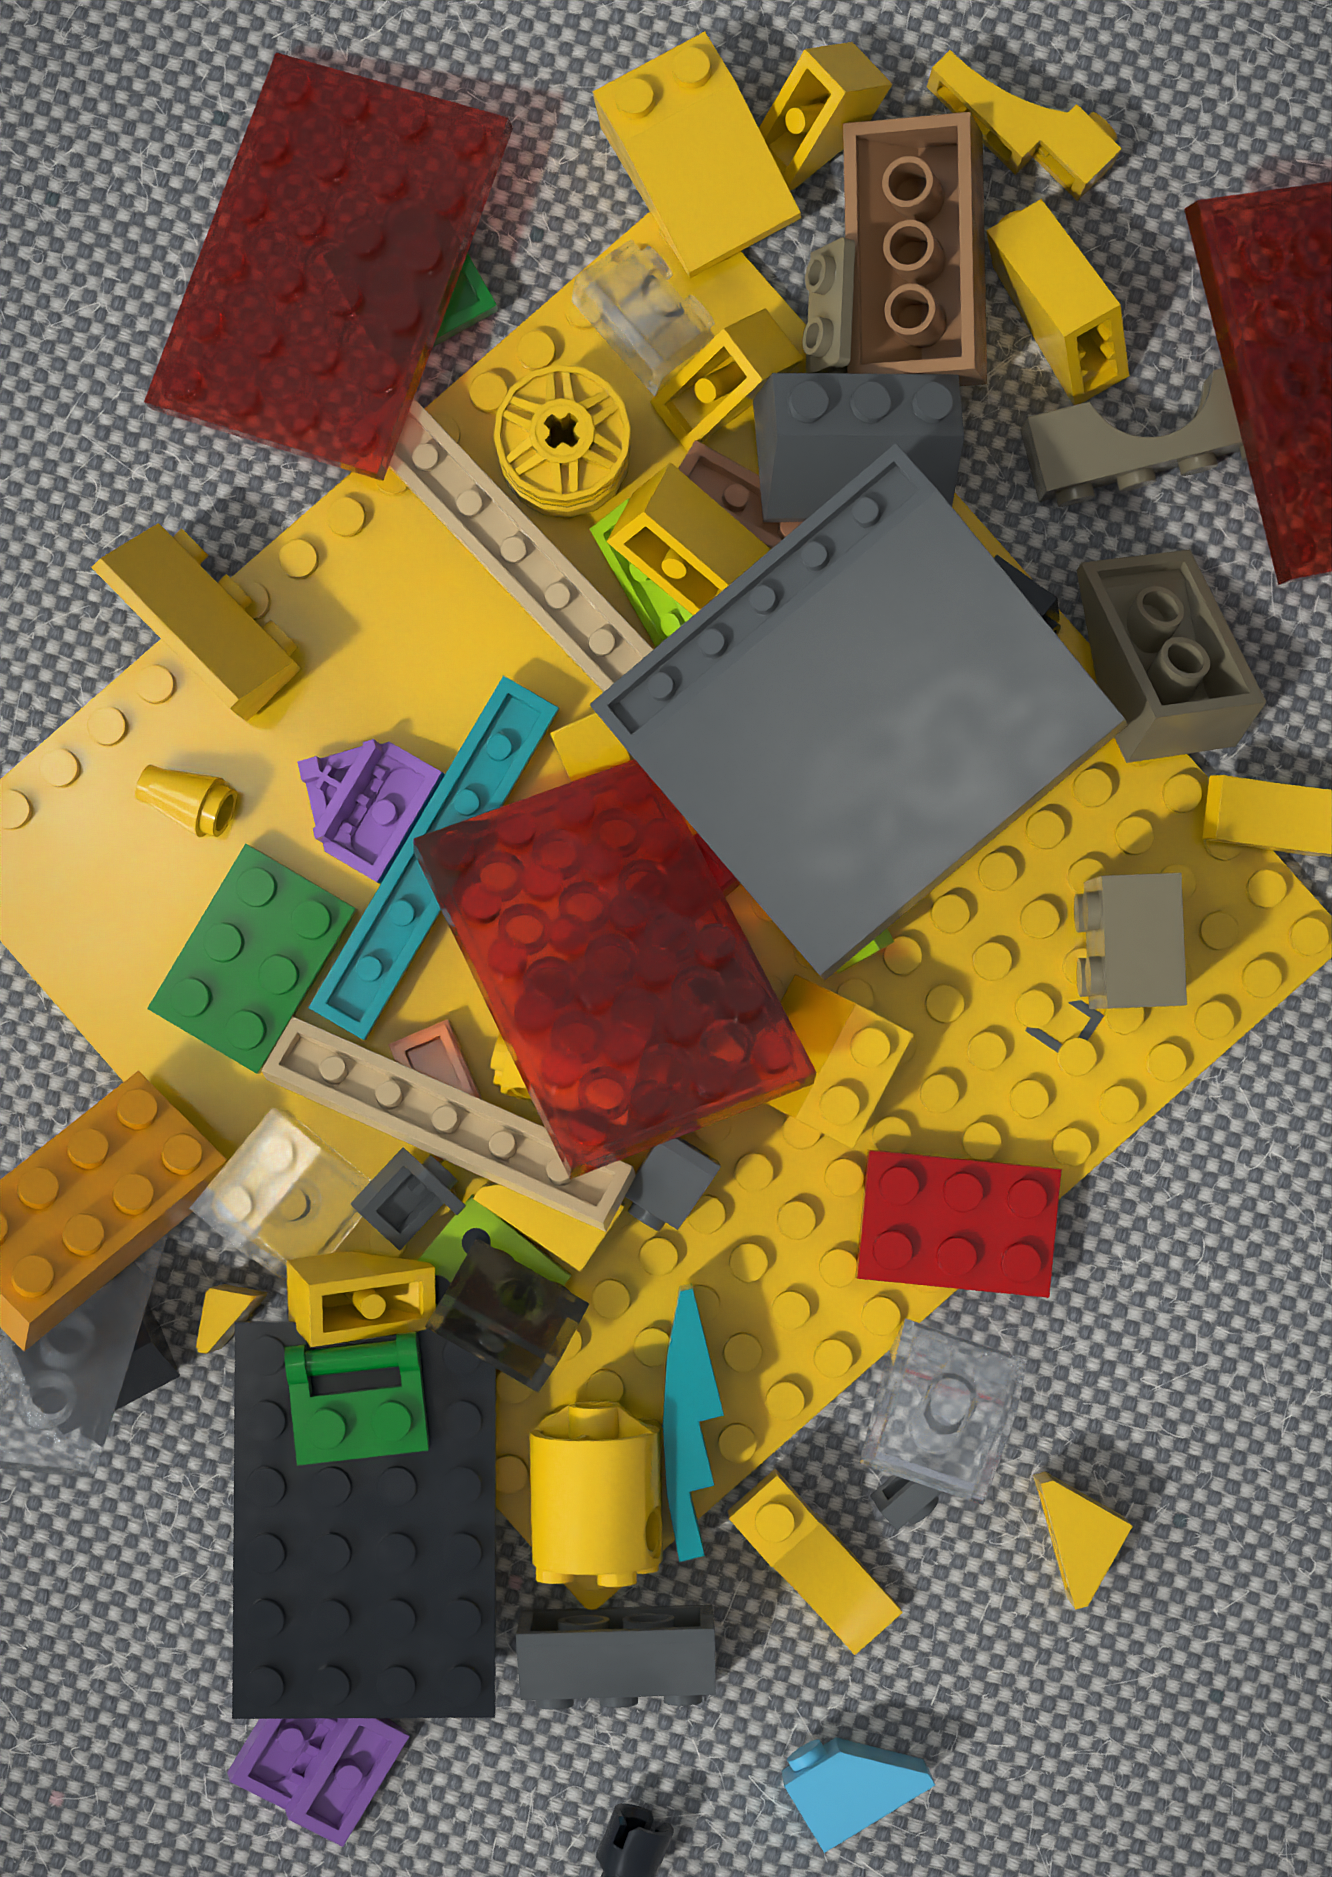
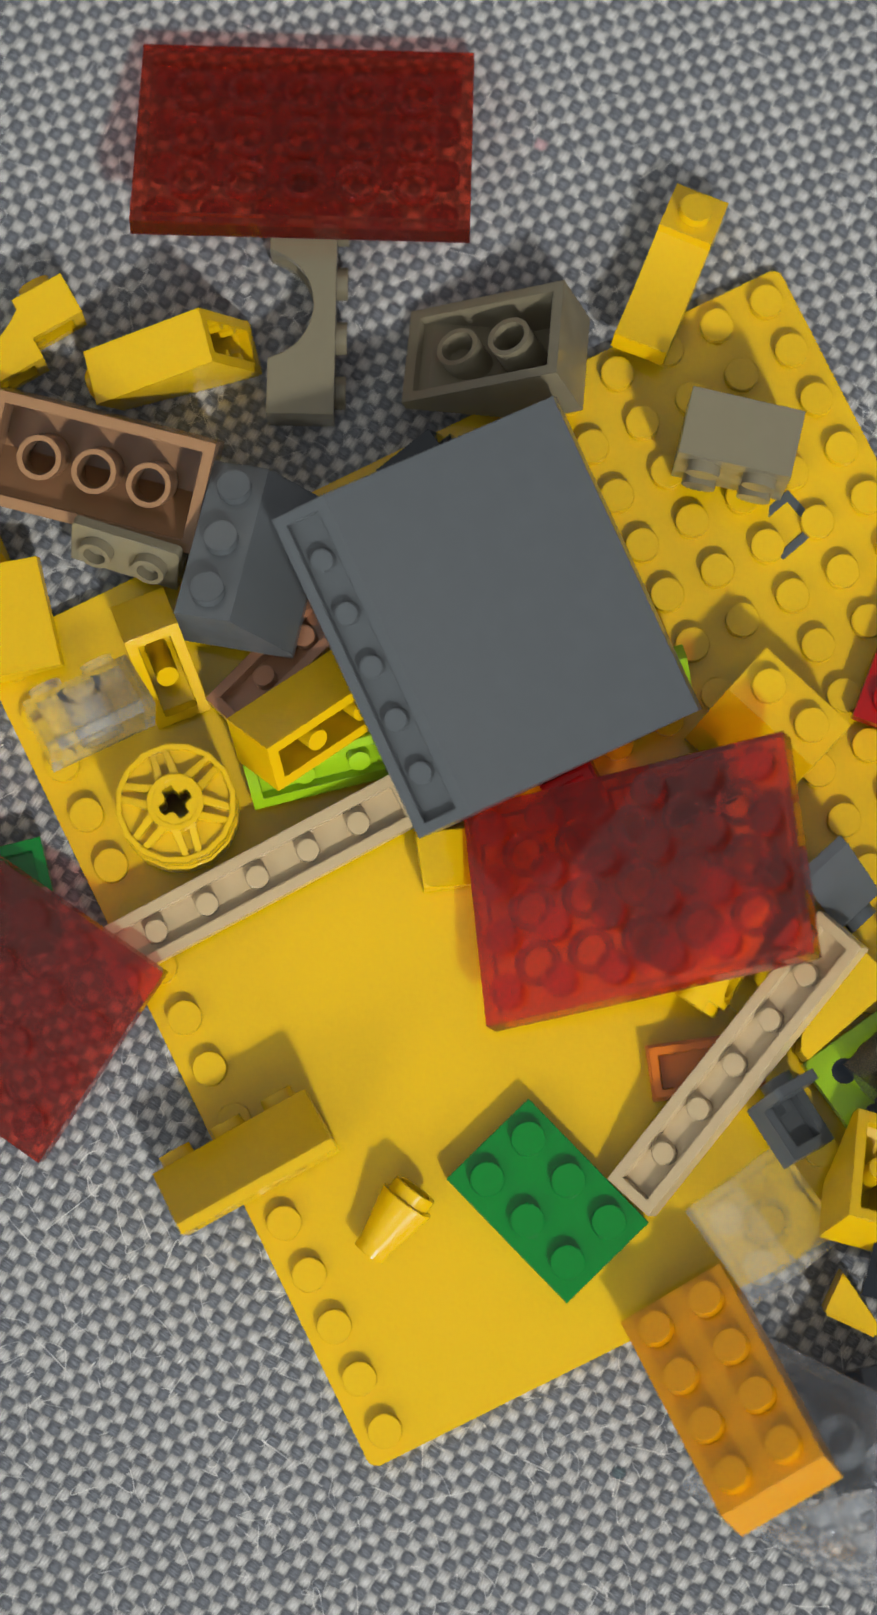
camera: 70 degrees left, 5 degrees down
(368, 802) = (440, 1062): medium lavender slope -> none
(404, 902) = (531, 1050): teal plate -> none

